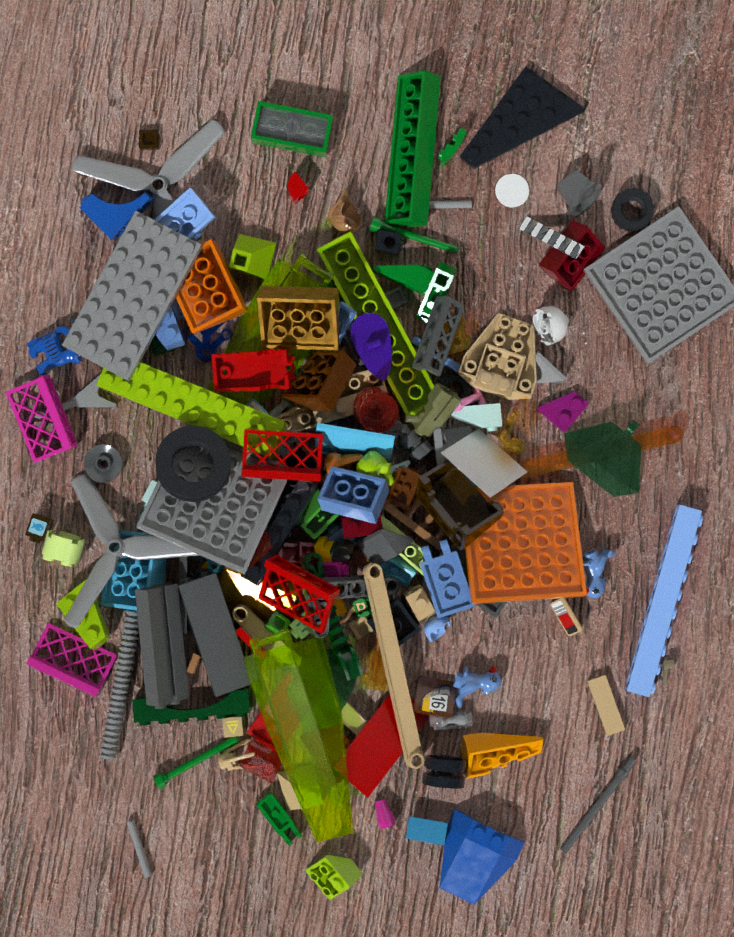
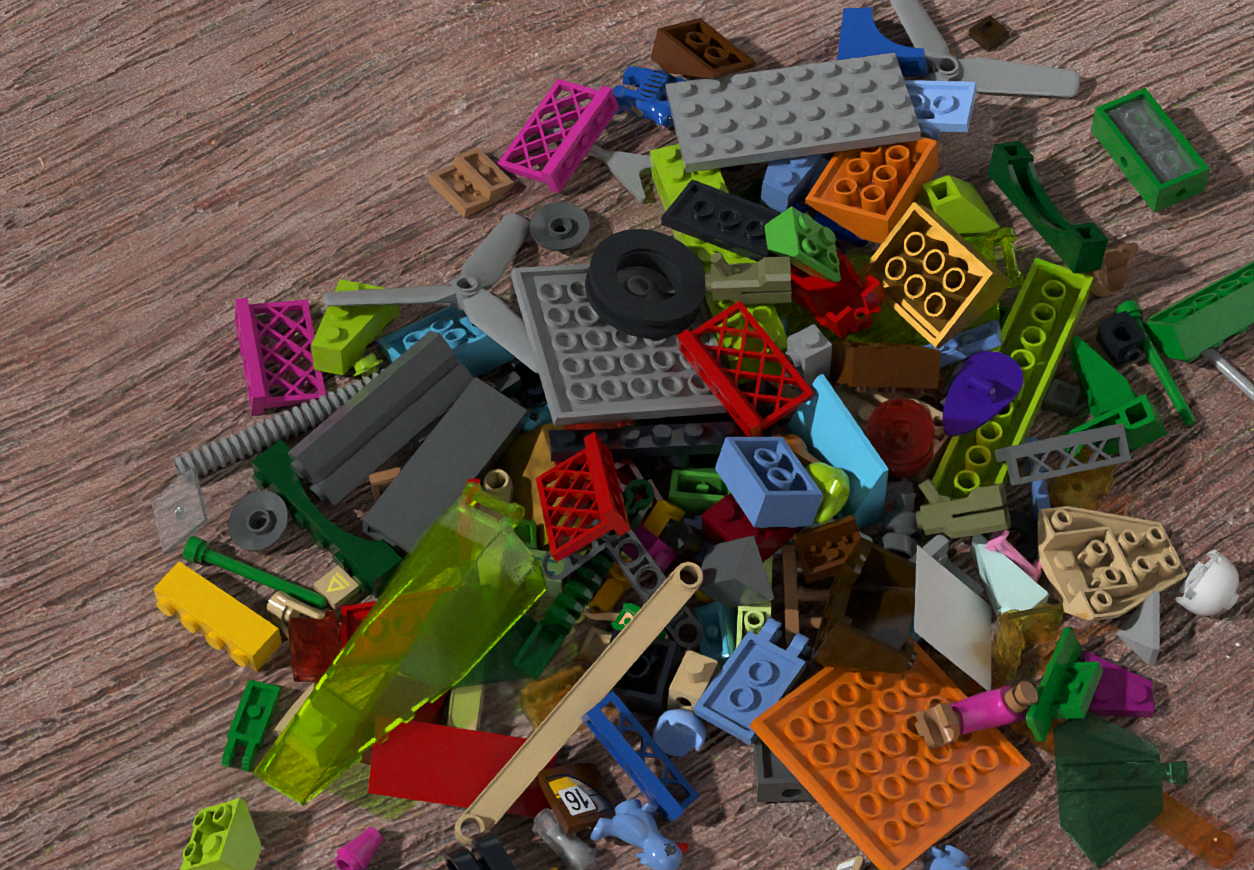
camera: 50 degrees right, 30 degrees down
(35, 485) = (471, 182): none -> medium nougat slope
(38, 527) = (421, 214): brick -> none
(53, 308) = (697, 51): none -> reddish brown slope
(63, 547) = (416, 247): yellowish green brick -> none
(114, 623) = (366, 365): none -> lime plate
(134, 775) = (179, 510): none -> clear piece
(139, 849) = (80, 589): light grey bar -> none
(168, 748) = (251, 513): none -> dark grey dish
(183, 388) = (721, 220): none -> black tile
(207, 796) = (217, 617): none -> yellow brick
(236, 370) = (806, 242): none -> bright green slope
(236, 414) = (750, 282): none -> olive piece
(297, 188) = (1085, 202): red brick -> none
(298, 418) = (809, 355): none -> light grey brick
(326, 225) = (1077, 245): none -> dark green arch
(442, 664) = (634, 762): none -> blue fence
(537, 485) = (982, 711): none -> piece
(551, 435) = (1065, 686): none -> green bracket

